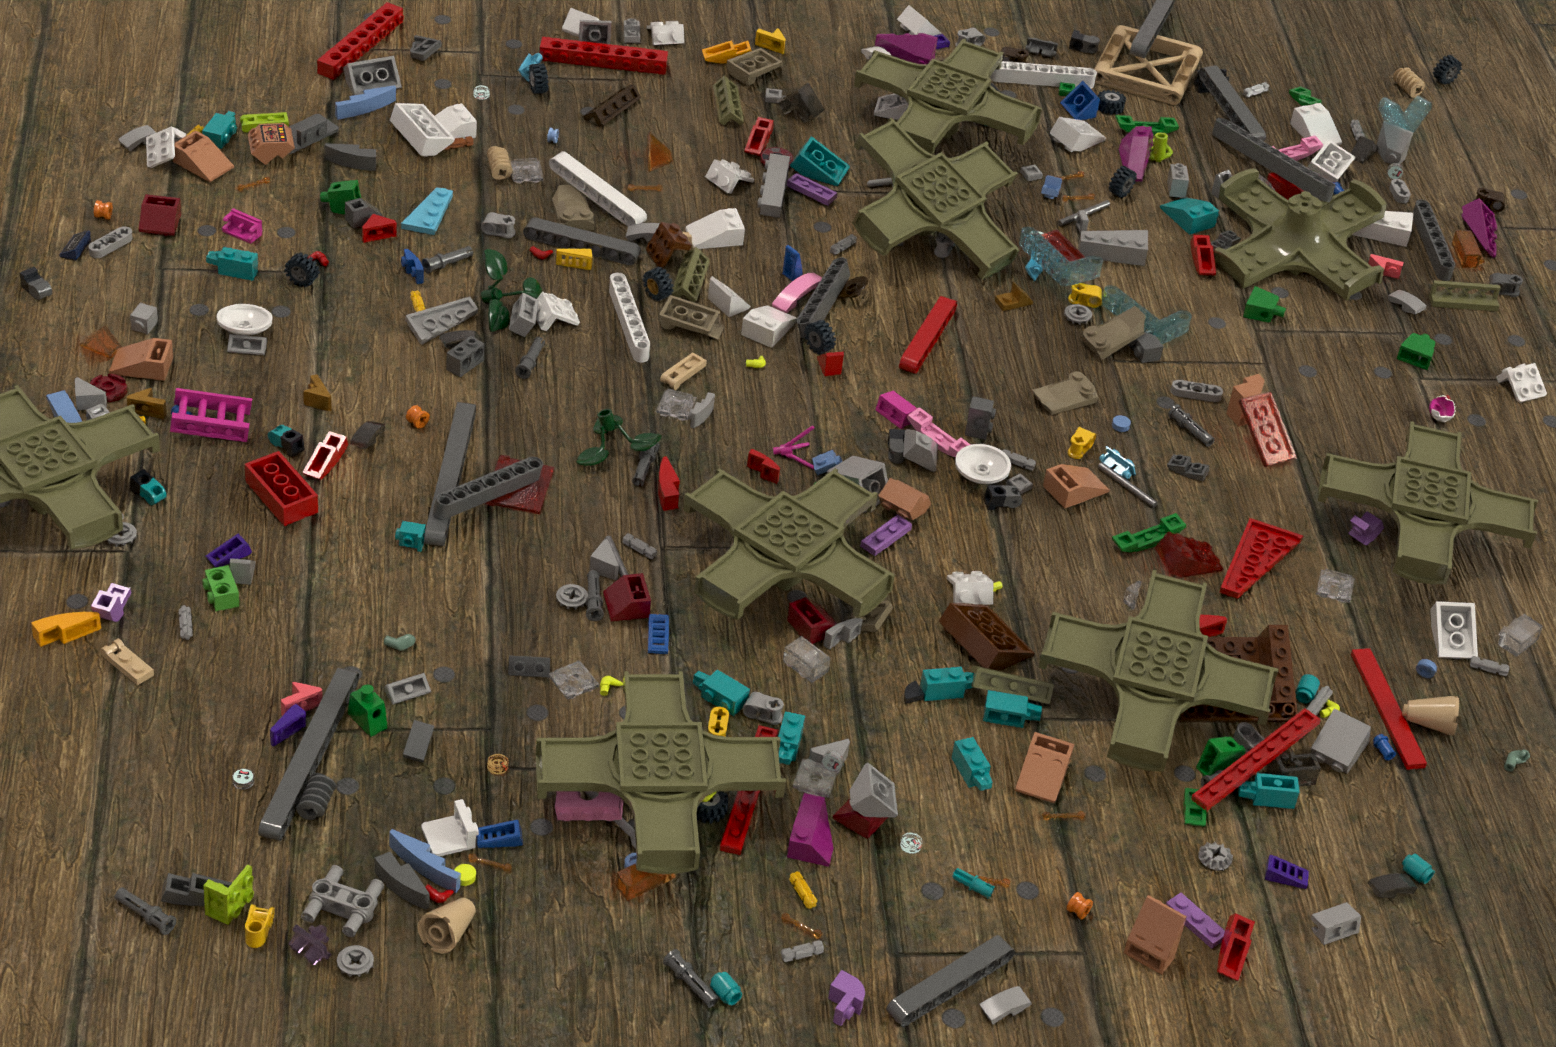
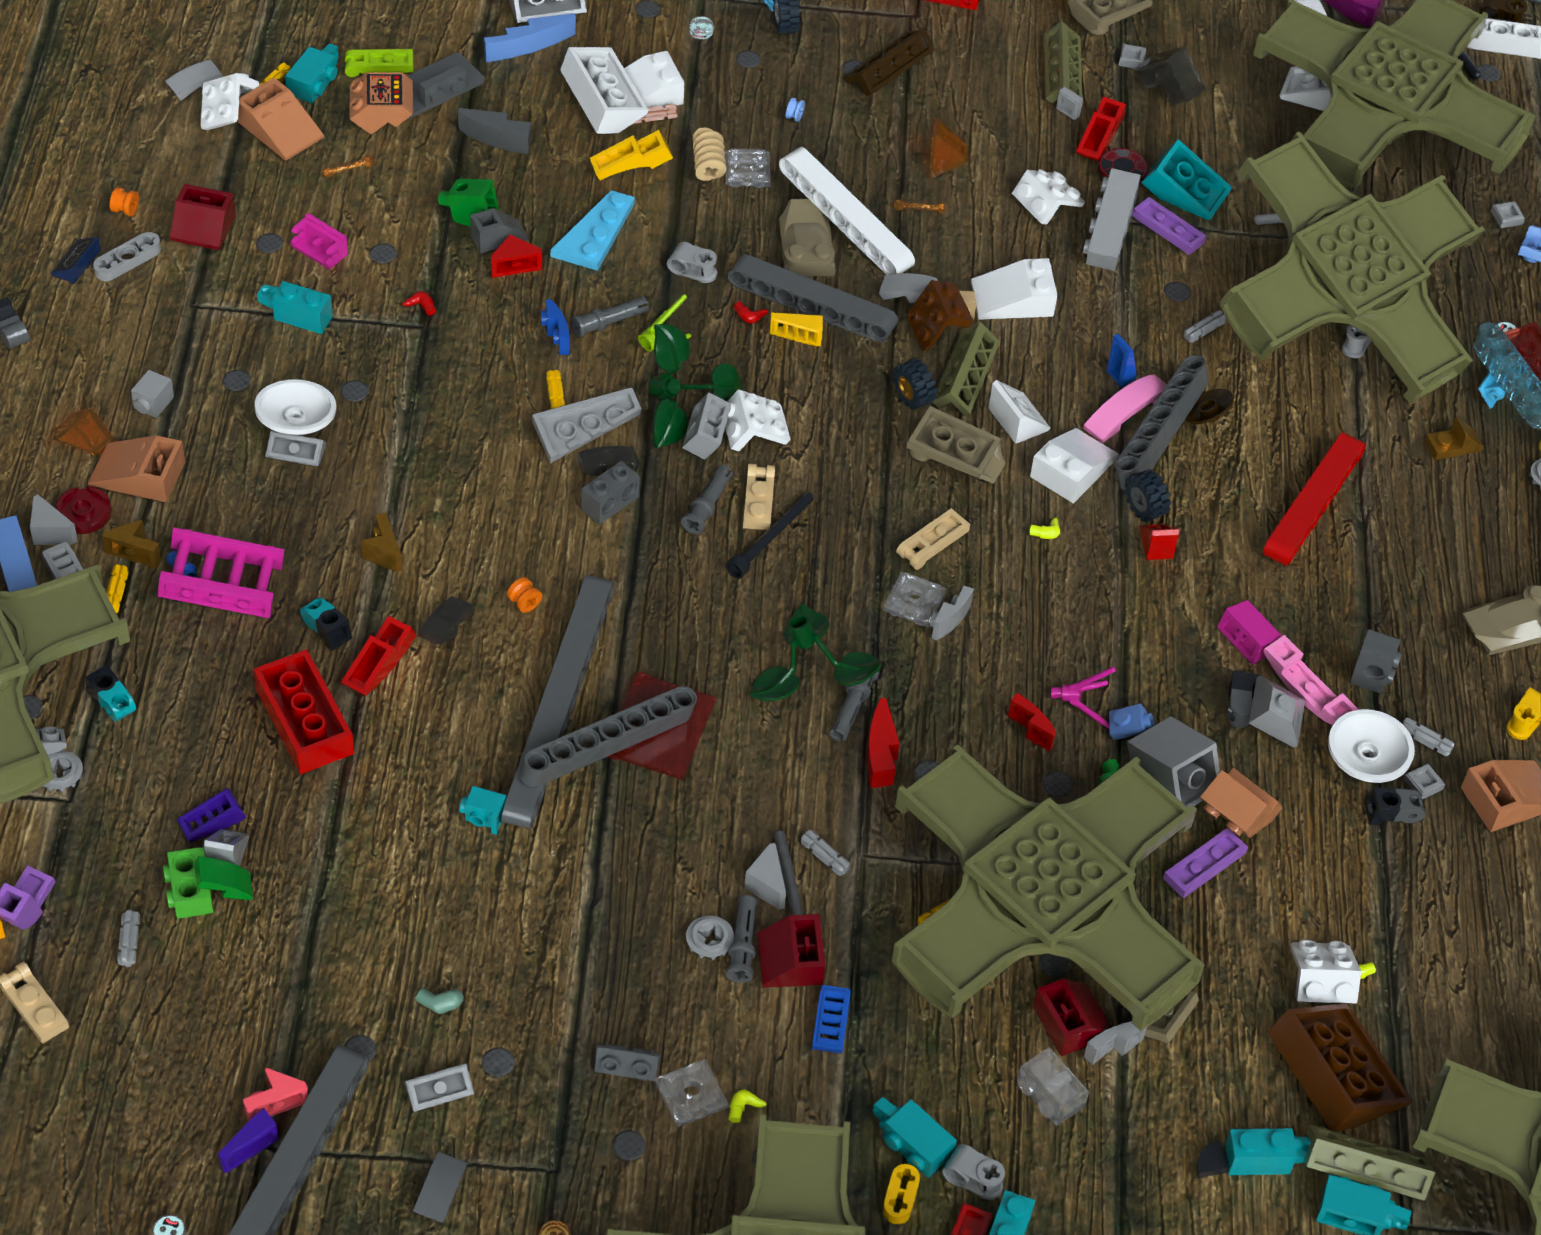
camera: 10 degrees right, 10 degrees up
(239, 579) = (223, 876): none -> green slope
(302, 270) = (392, 326): black wheel -> none
(368, 710) = (365, 1122): green torso -> none
(447, 165) = (632, 154): none -> yellow slope
(478, 268) = (647, 337): none -> lime plant
(557, 392) = (740, 564): none -> black piece
(564, 355) = (759, 497): none -> tan plate
(629, 317) = (864, 439): white beam -> none
(736, 123) = (1069, 103): none -> light grey tile

